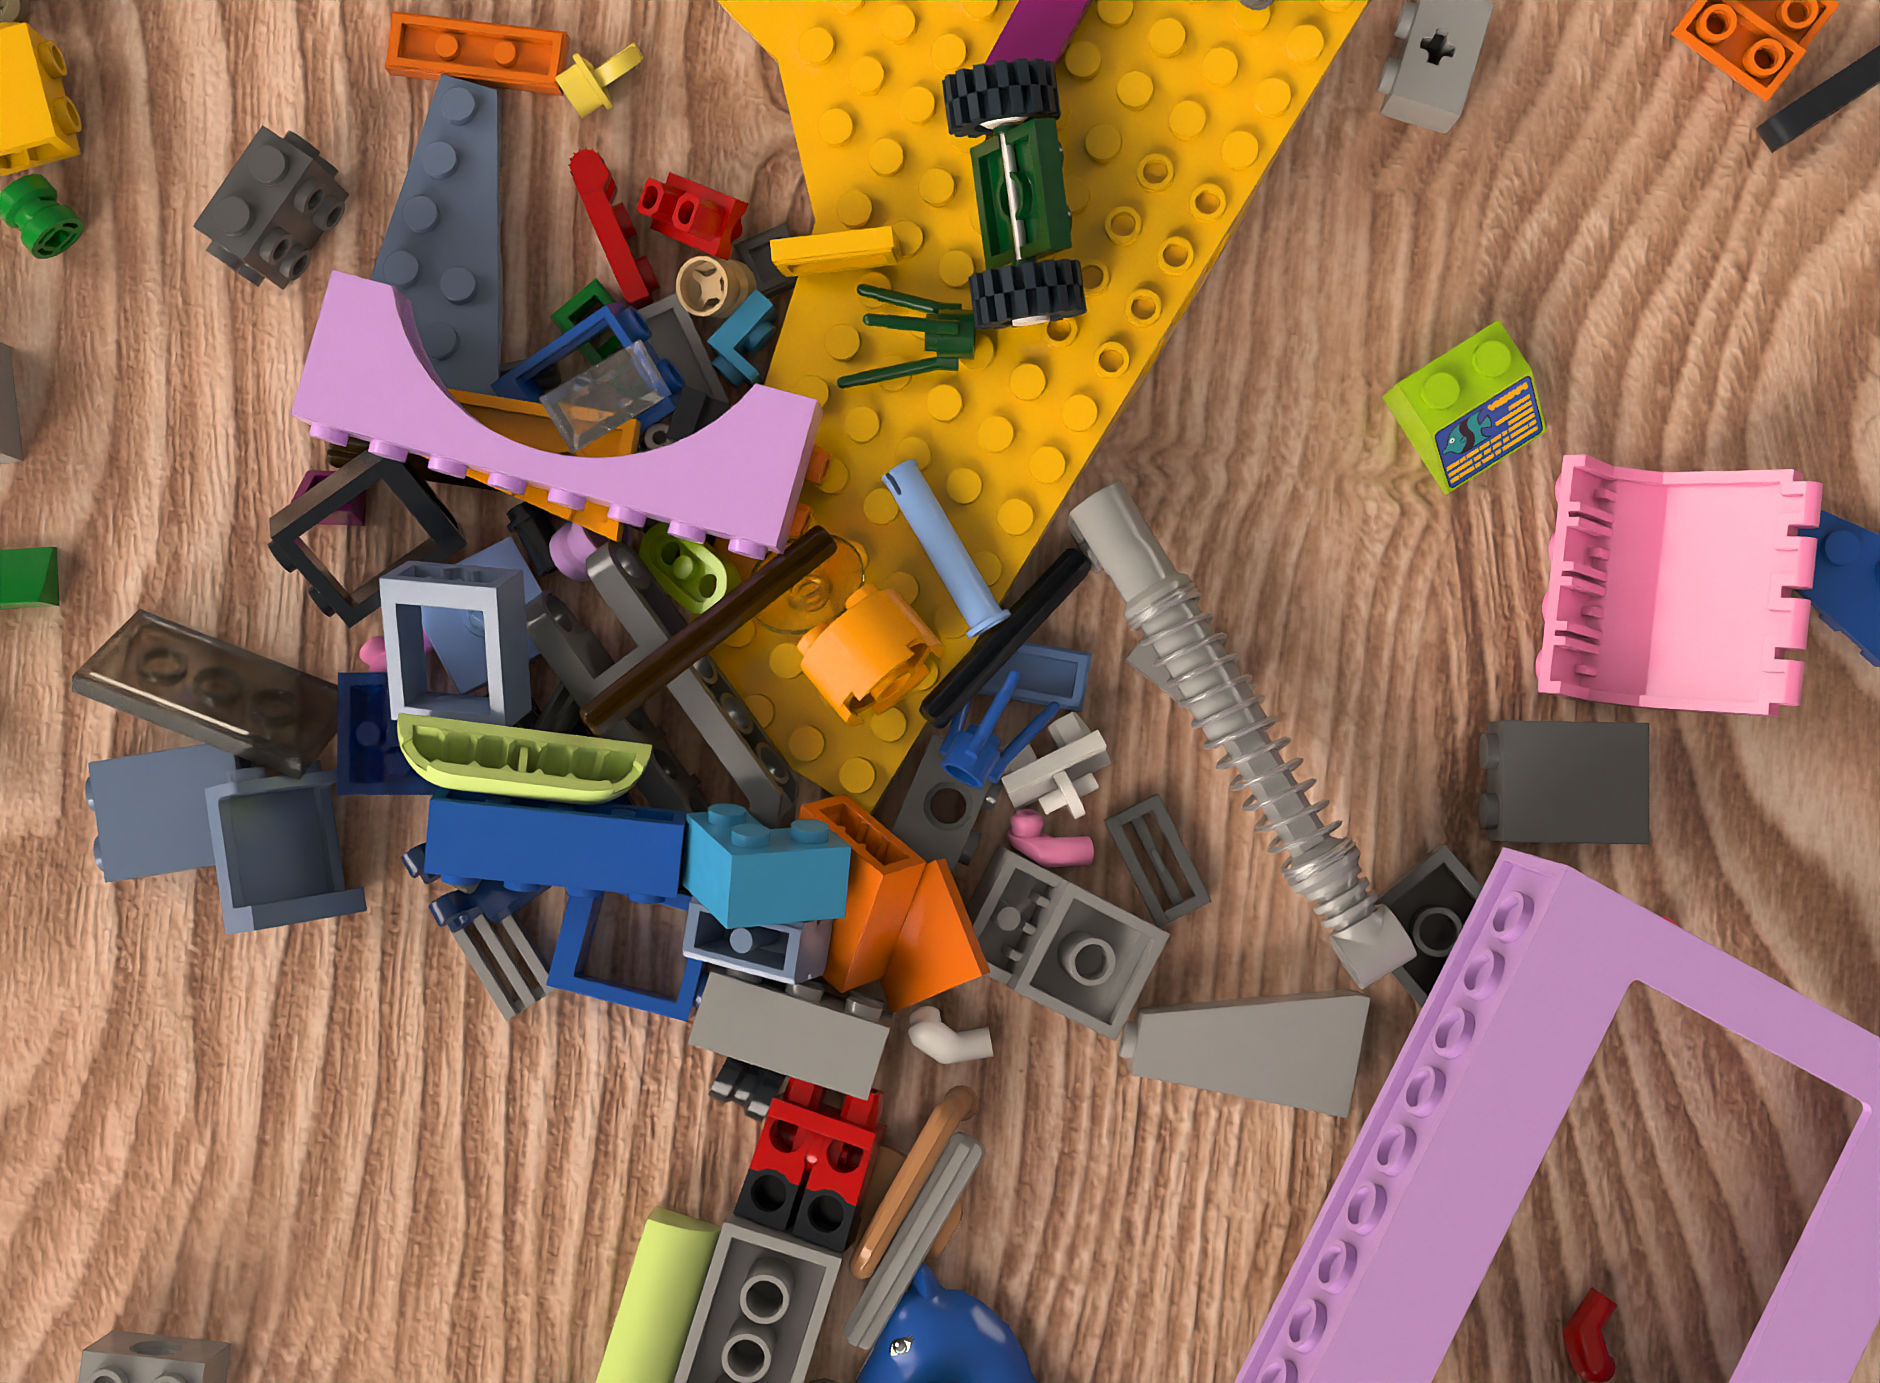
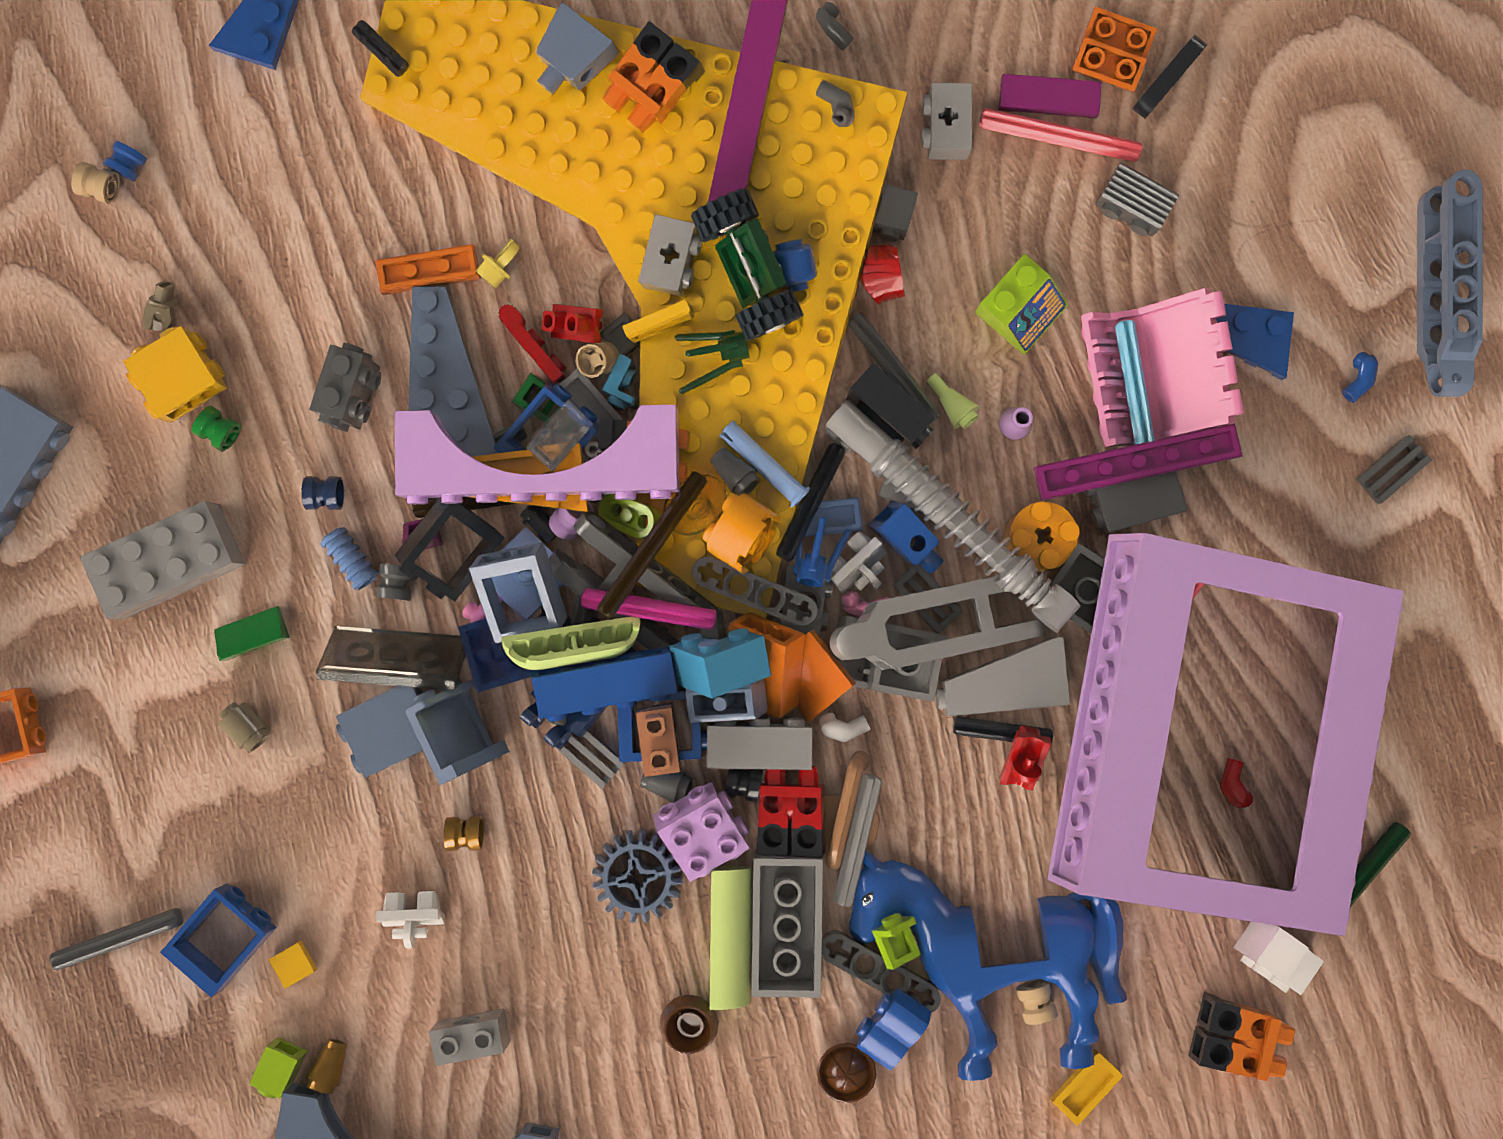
camera: 20 degrees left, 0 degrees up
(92, 1128) = (395, 914): none -> white hips
(178, 376) = (322, 493): none -> dark blue wheel
(196, 501) = (349, 558): none -> medium blue piece
(248, 1026) = (463, 833): none -> pearl gold wheel
(256, 567) = (393, 583): none -> dark grey wheel
(513, 1237) = (622, 880): none -> sand blue gear
(614, 972) = (658, 739): none -> nougat hips
(620, 1047) = (668, 786): none -> dark grey cone
(651, 1145) = (702, 830): none -> lavender brick
(683, 745) = (655, 610): none -> dark pink axle
(859, 768) = (756, 588): none -> dark grey beam
(888, 112) = (665, 237): none -> light grey brick
(889, 548) = (734, 472): none -> dark grey cone
(1035, 906) = (870, 639): none -> light grey piece
(1100, 220) = (797, 263): none -> blue head
(1142, 725) = (897, 527): none -> blue torso
(1190, 516) = (891, 407): none -> black window
(1216, 452) = (889, 361): none -> dark grey axle
(1218, 1127) = (991, 729): none -> black axle
(1244, 1187) = (1025, 758): none -> red hips
(1245, 283) = (882, 273): none -> red hair
(1296, 187) = (894, 213): none -> dark grey brick
(1306, 551) = (957, 407): none -> yellowish green cone
(1386, 610) = (1009, 425): none -> lavender cone
(1417, 817) = (1059, 530): none -> light orange brick
(1589, 735) = (1137, 461): none -> magenta tile
(1619, 138) = (1060, 135): none -> coral axle
(1621, 66) = (1050, 95): none -> magenta tile
(1621, 603) = (1134, 382): none -> medium azure axle
(1717, 287) = (1136, 200): none -> dark grey brick

